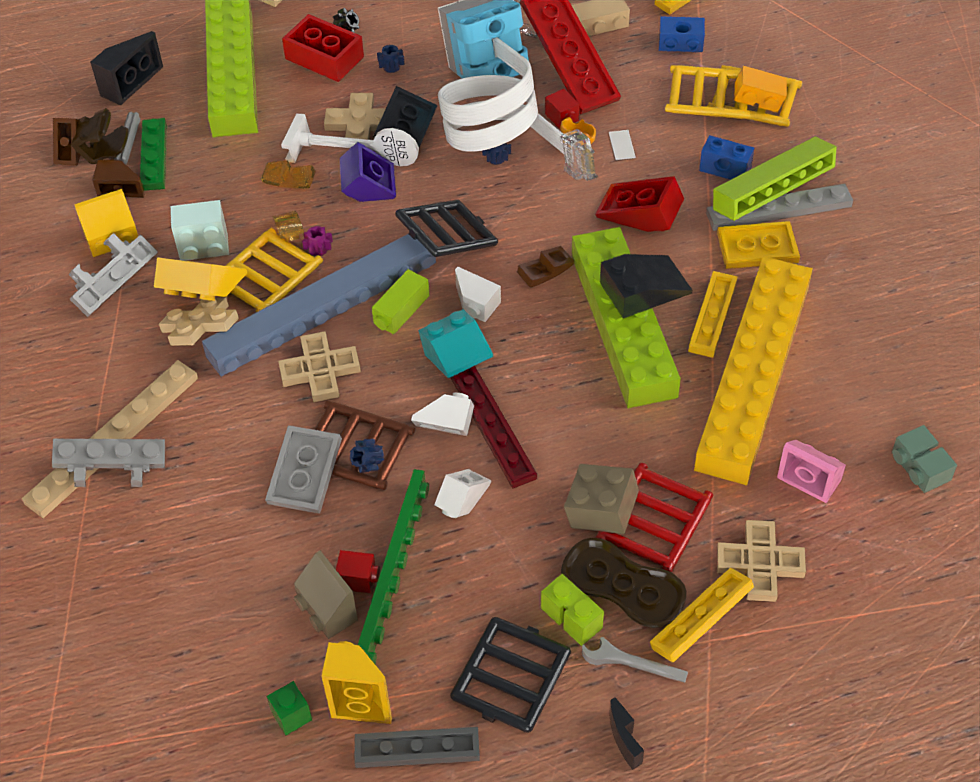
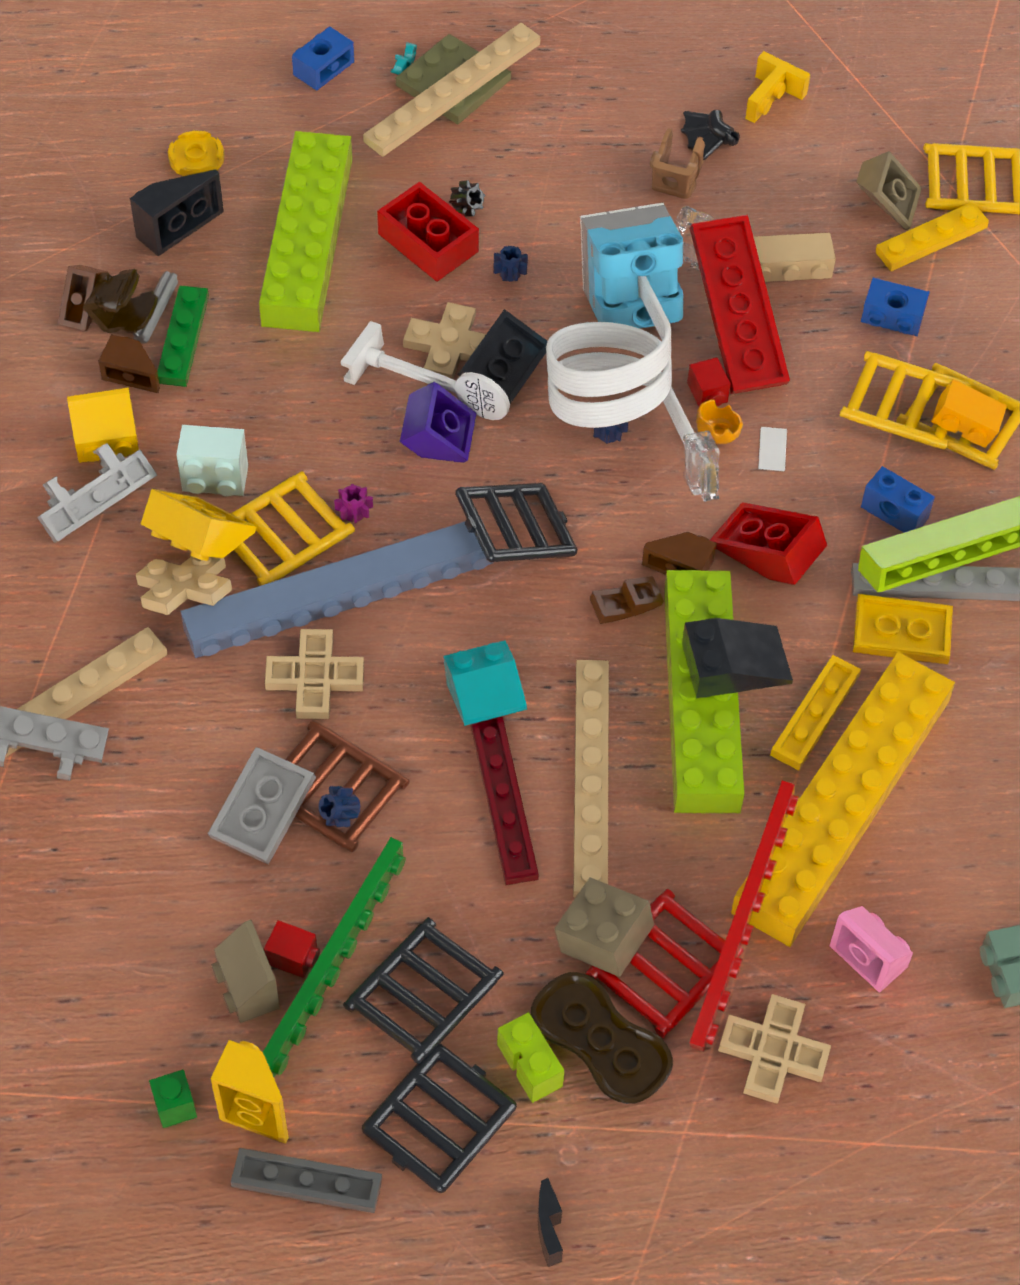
camera: 10 degrees right, 5 degrees up
(129, 28) = (195, 153): none -> yellow tile
(283, 175) = (338, 402): clear yellow slope -> none
(288, 226) = (322, 475): clear yellow slope -> none
(400, 301) = (434, 609): lime brick -> none
(446, 414) = (450, 773): white slope -> none
(461, 492) = (441, 878): white slope -> none
(476, 294) = (530, 621): white slope -> none
(495, 601) = (443, 1025): none -> black bar
(555, 393) = (591, 773): none -> tan plate
(575, 223) = (679, 552): none -> reddish brown slope
(611, 655) = (560, 1121): light grey piece -> none
(701, 614) = (682, 1100): yellow plate -> none
(710, 475) = (740, 929): none -> red plate

